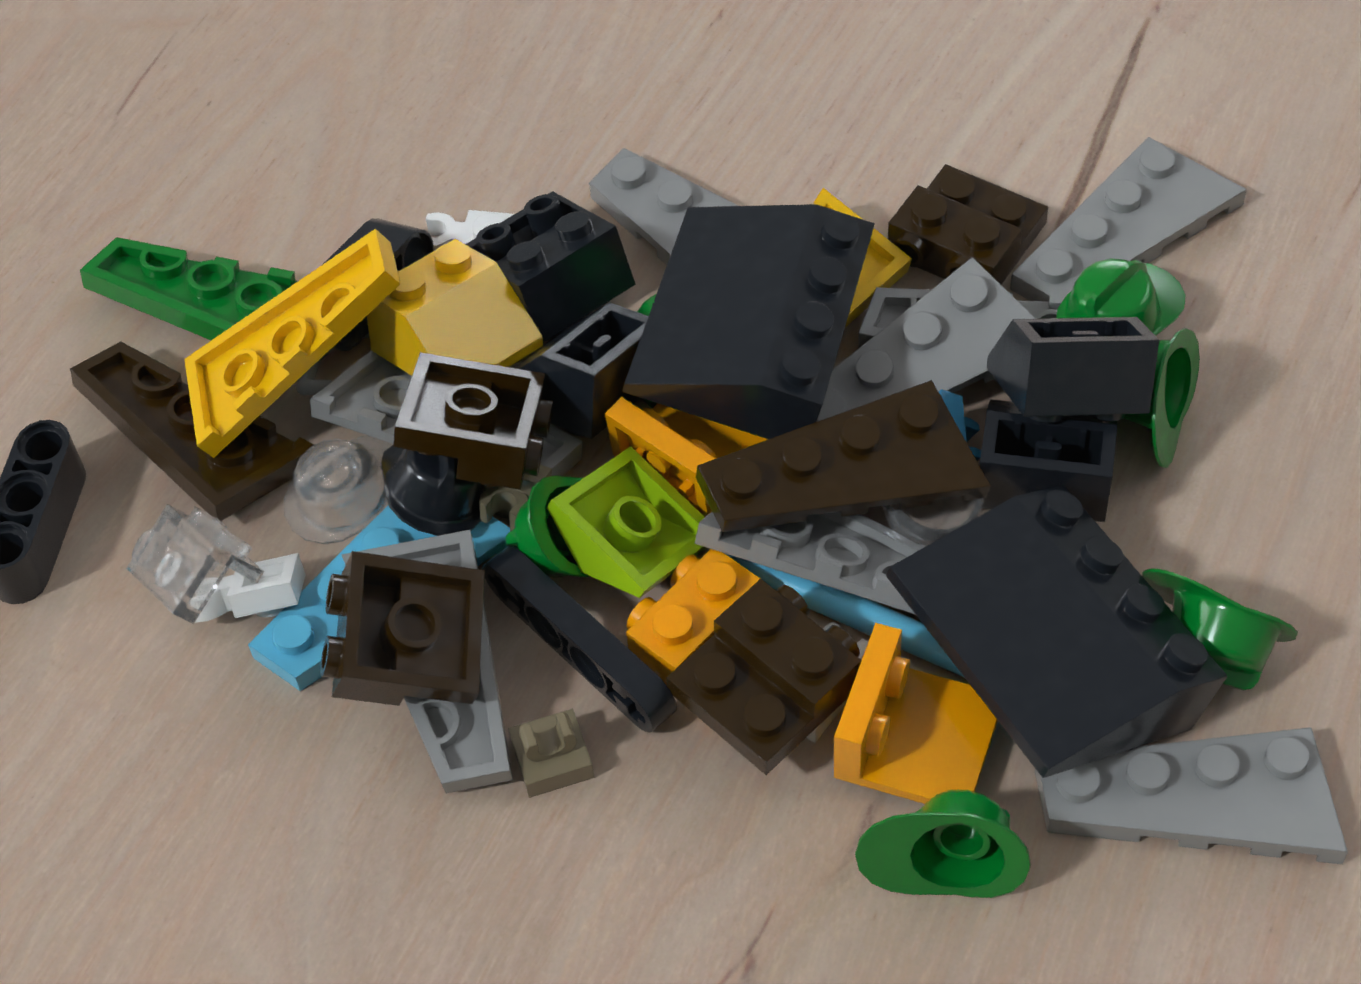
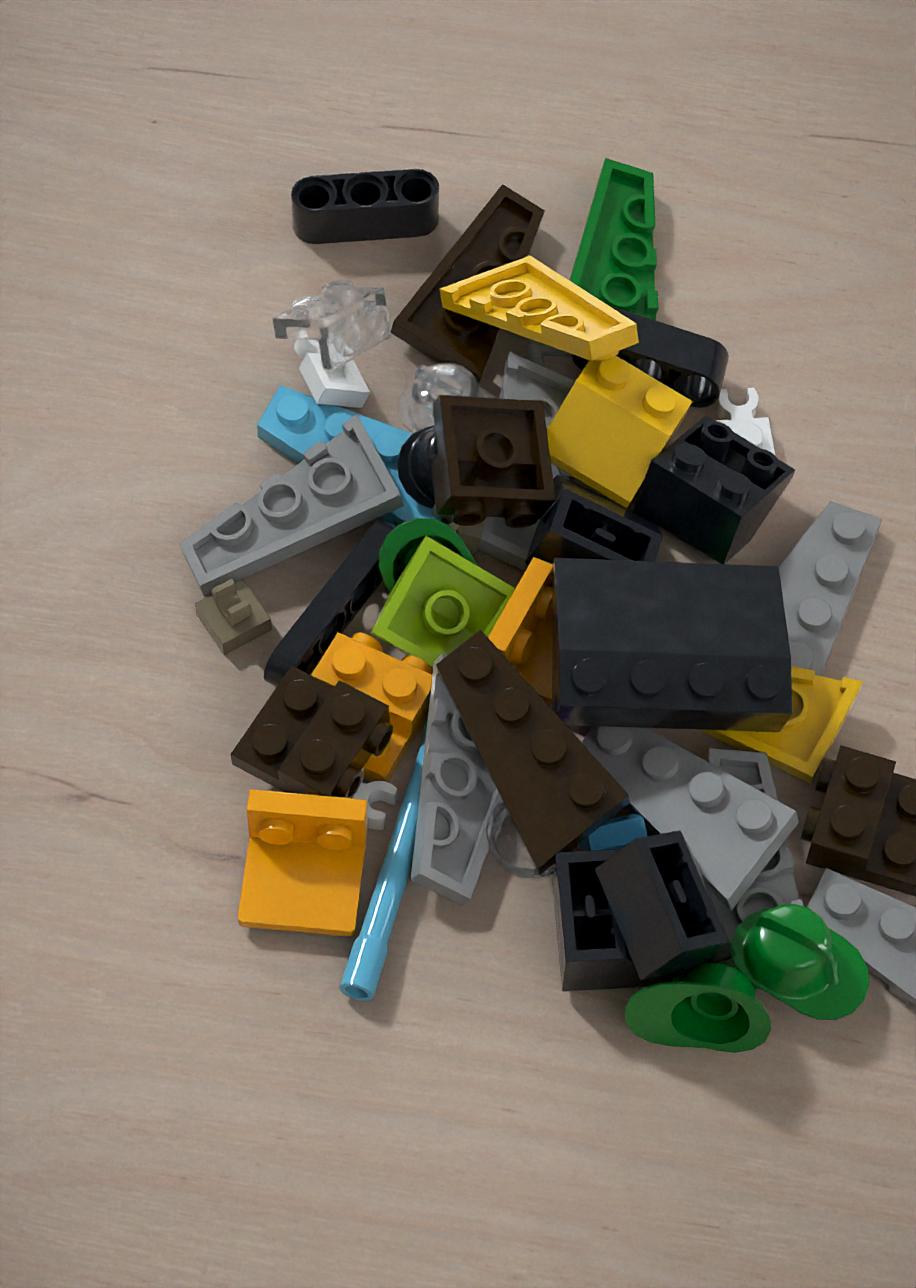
camera: 70 degrees right, 5 degrees up
(404, 630) = (283, 470): dark brown plate -> none
(947, 847) = (197, 906): green piece -> none
(1058, 632) = (403, 946): black slope -> none
(1223, 790) = (298, 1116): light grey wing -> none
(1231, 633) = (445, 1084): green piece -> none

